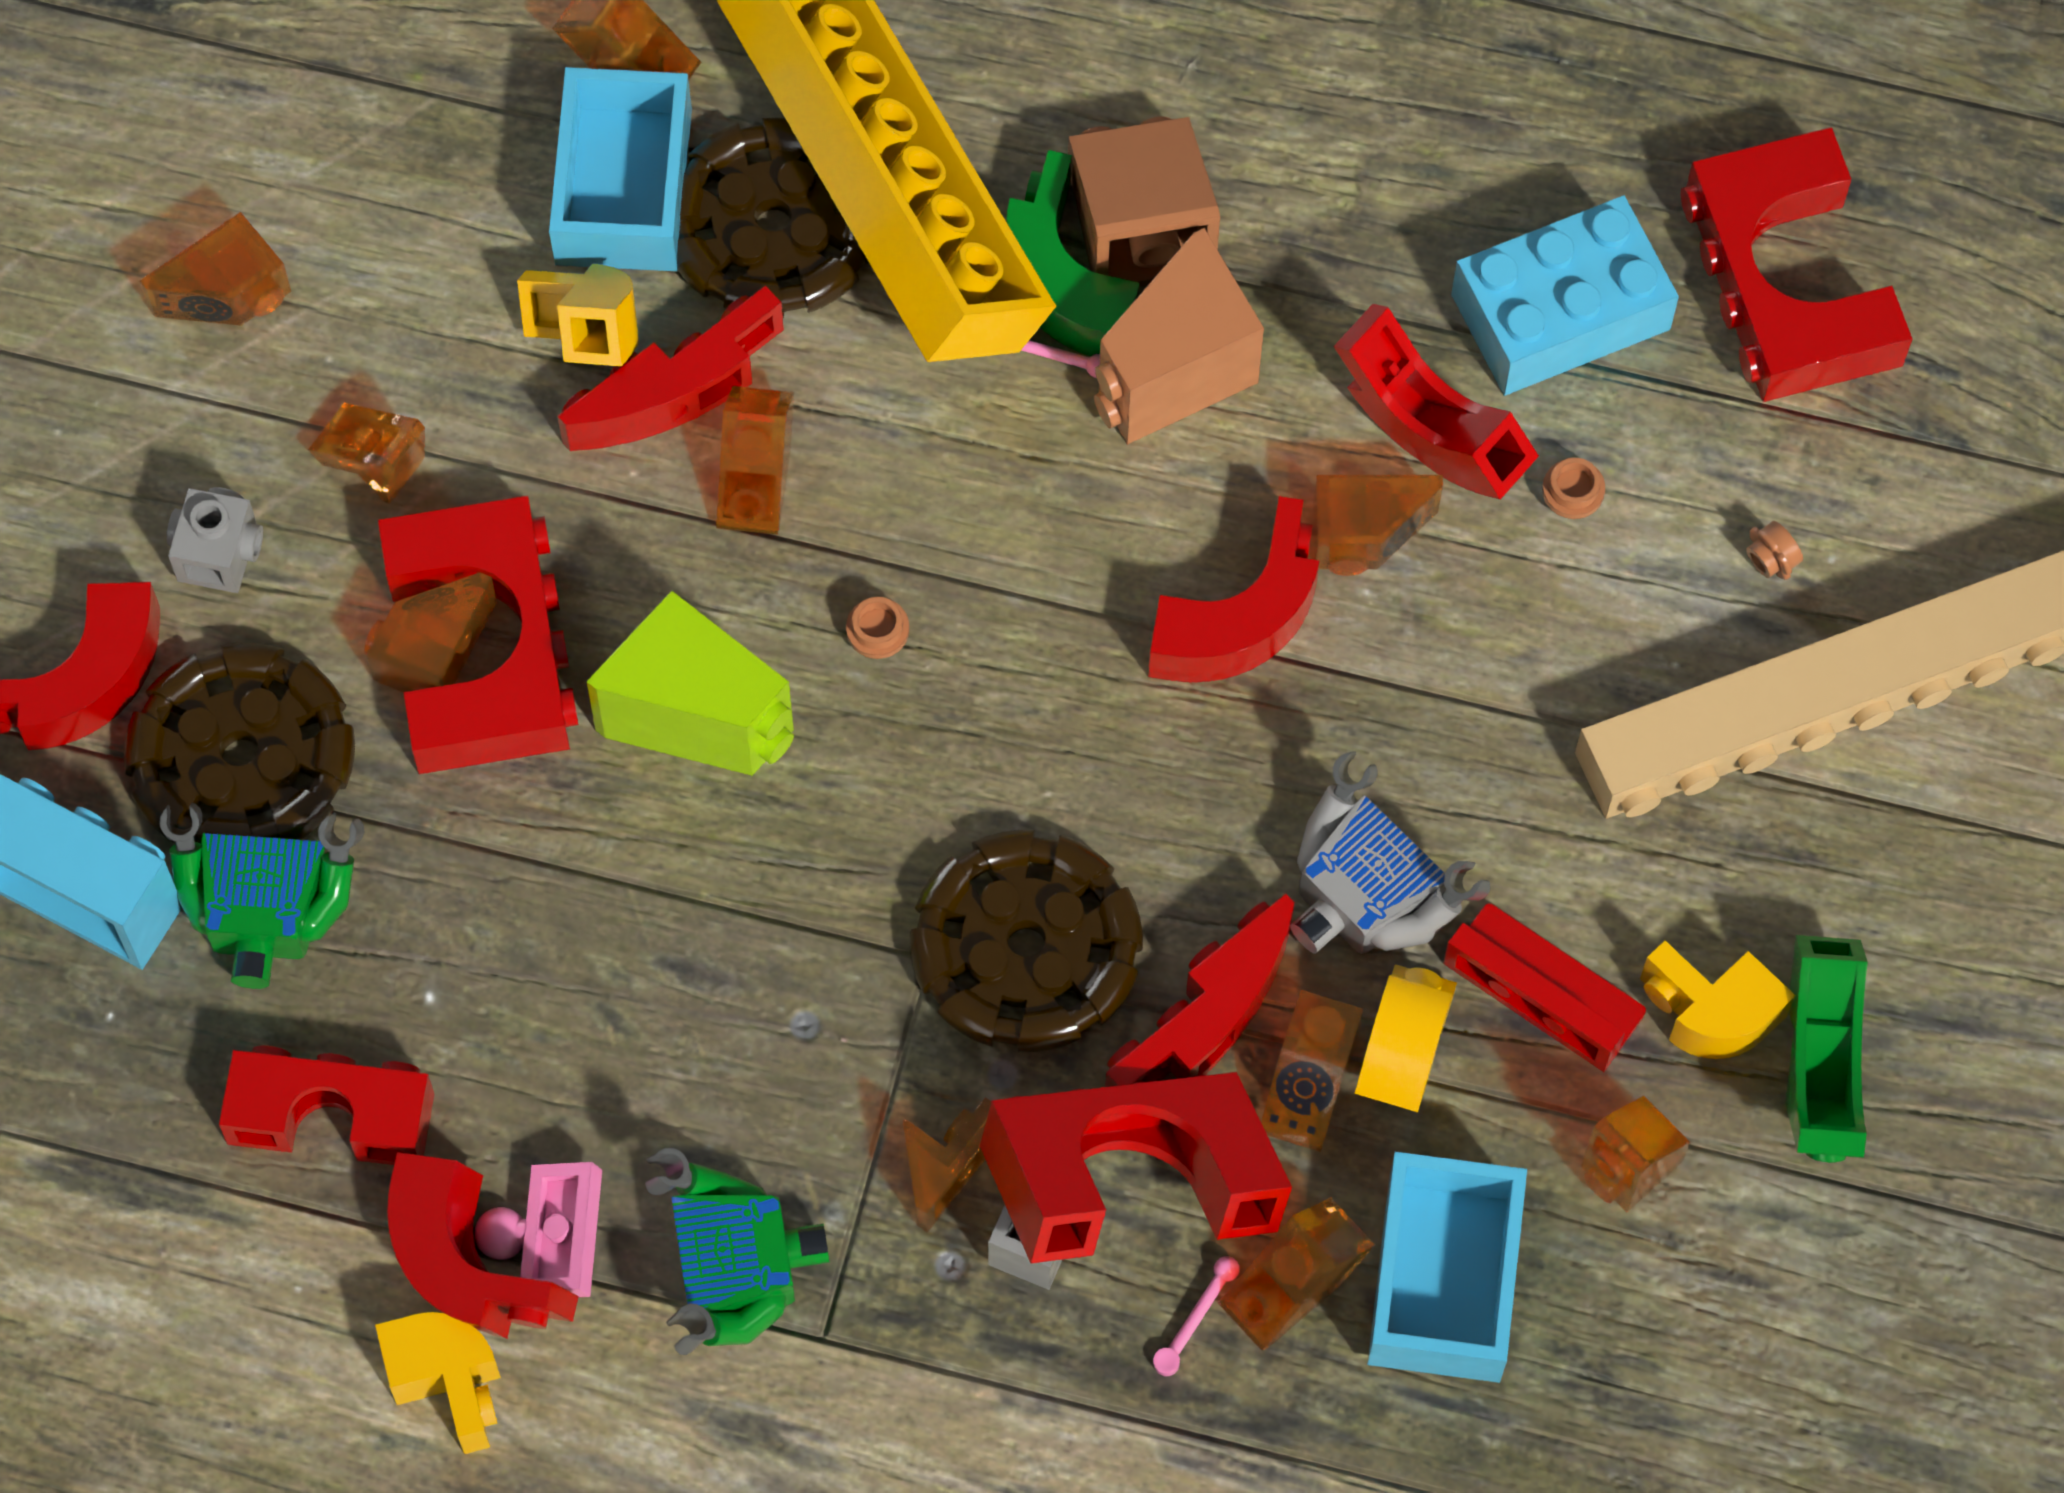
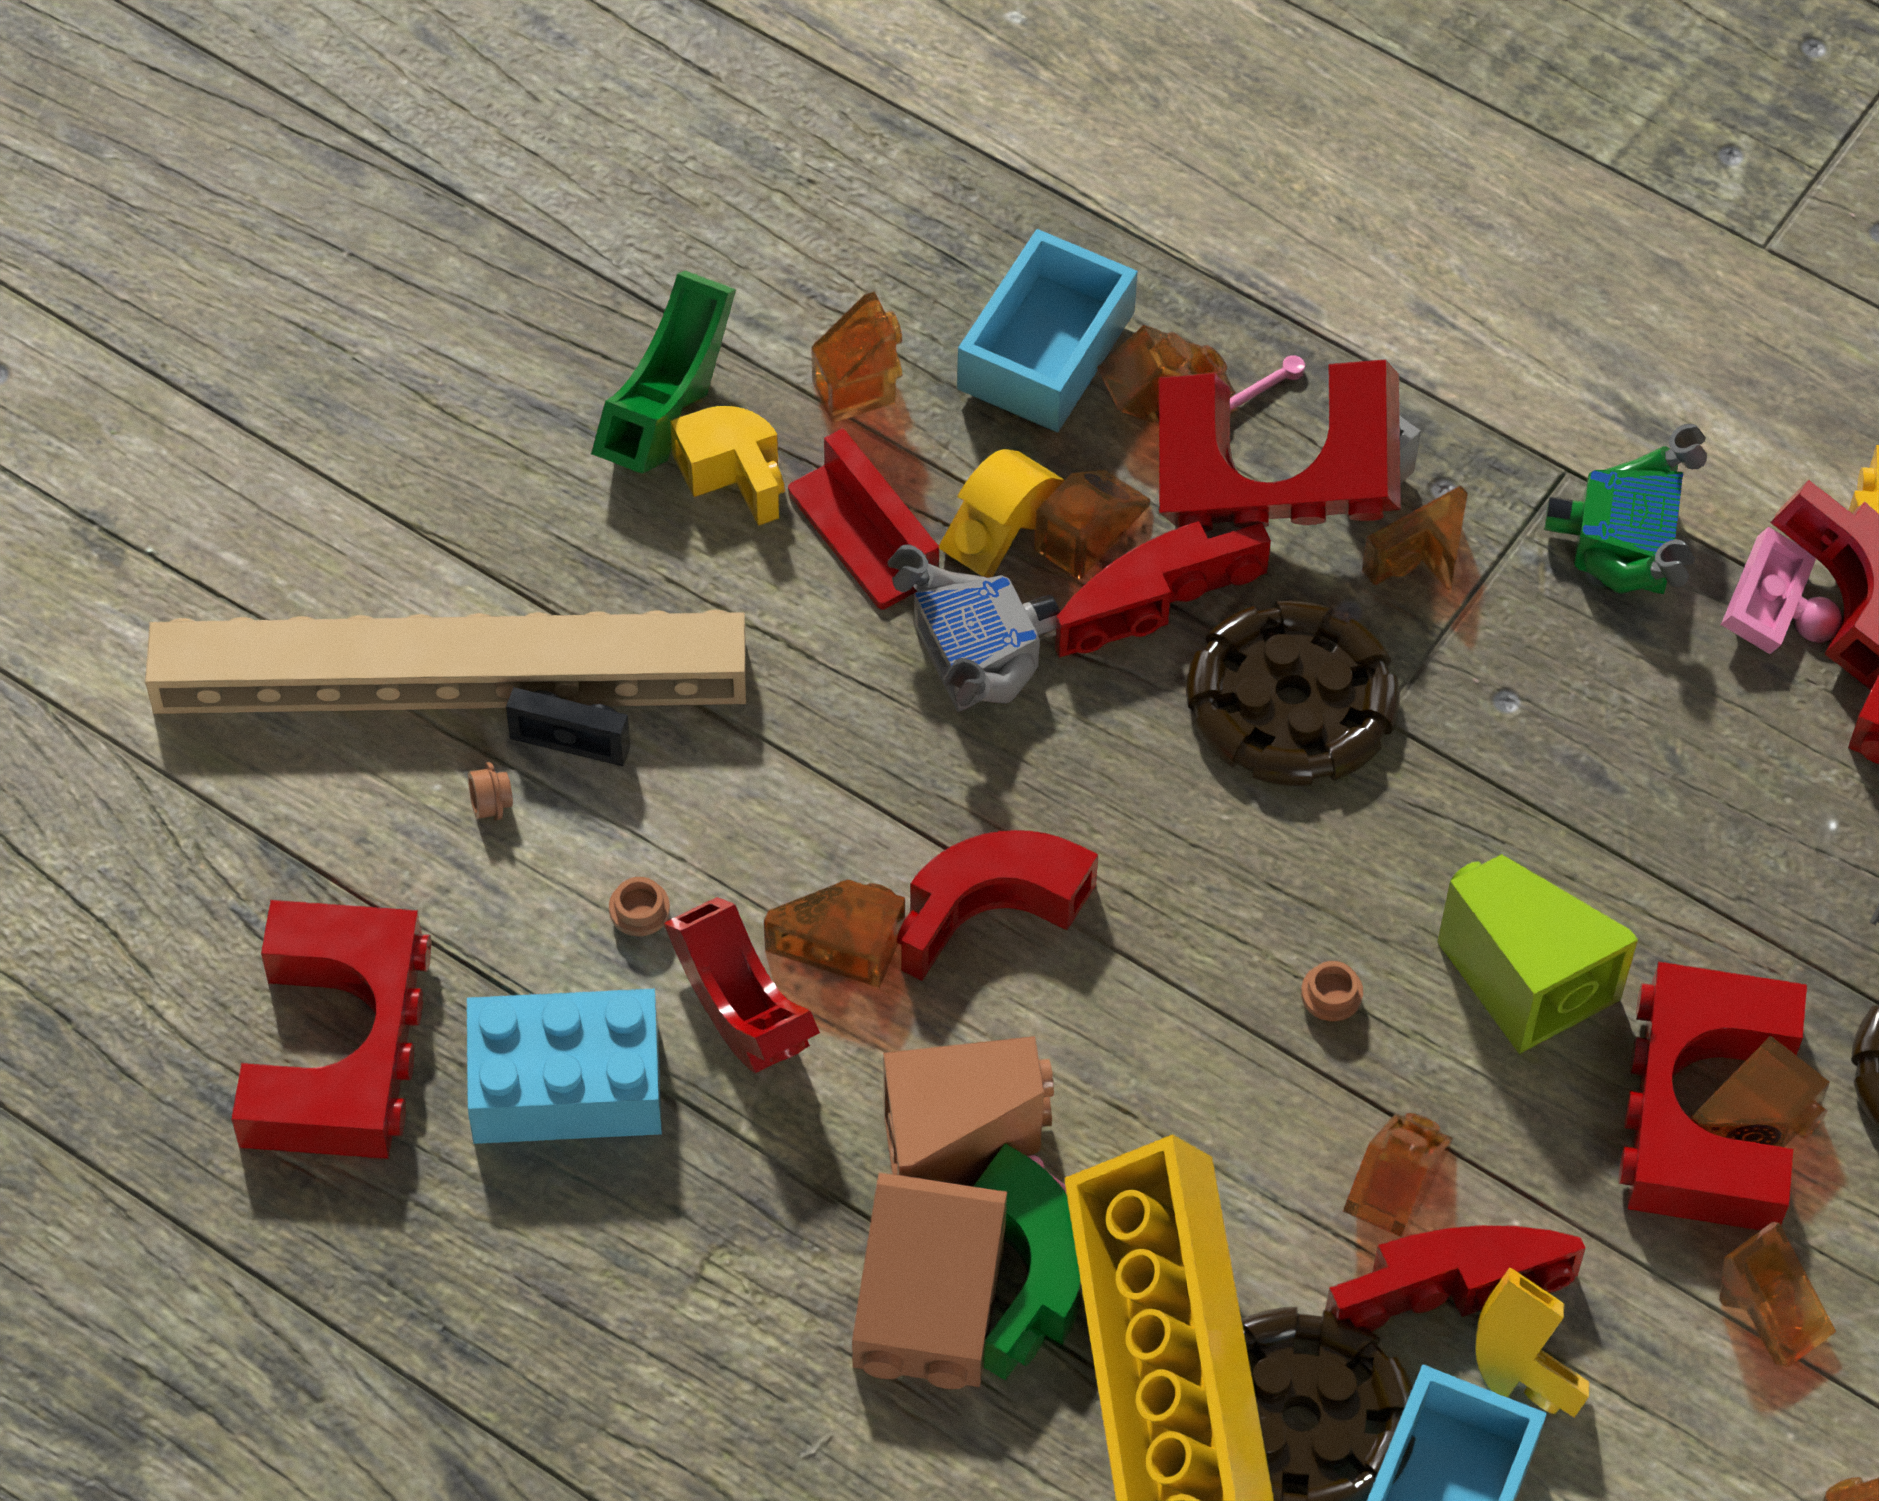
camera: 160 degrees left, 10 degrees down
(1710, 641) = (568, 726): none -> black plate

